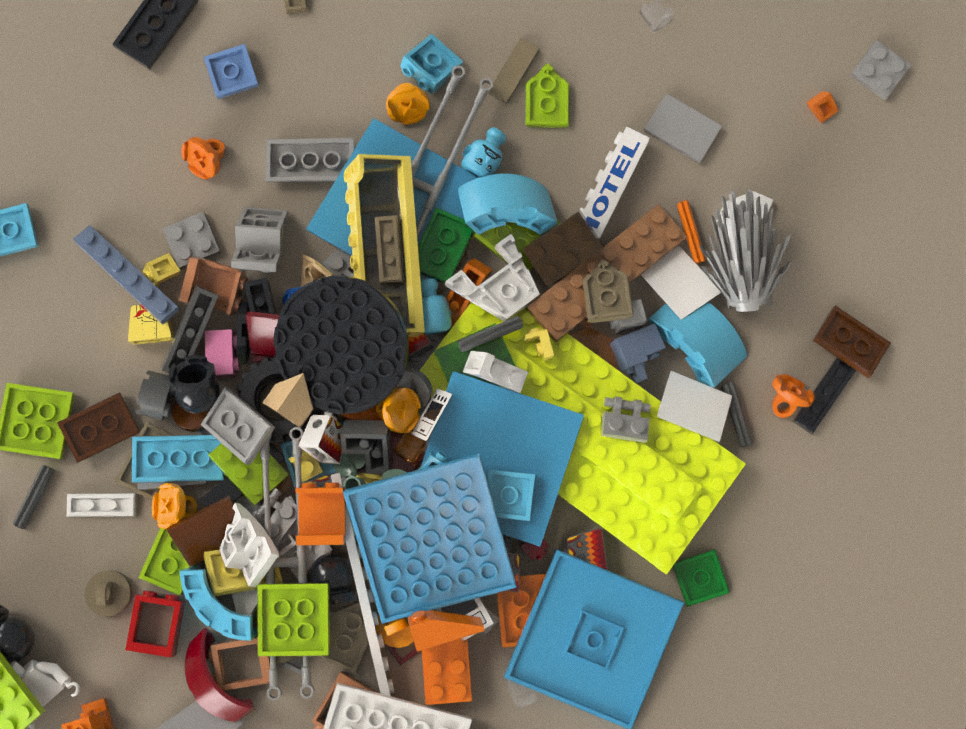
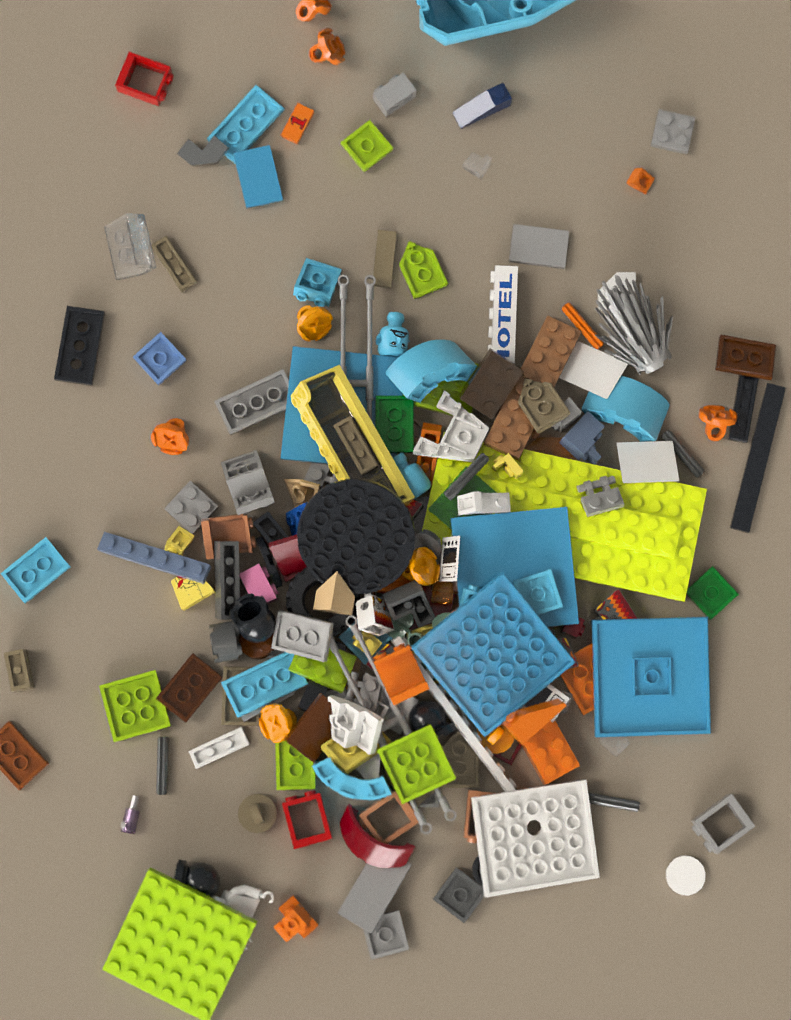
camera: 25 degrees left, 0 degrees up
(816, 455) = (757, 458): none -> black tile

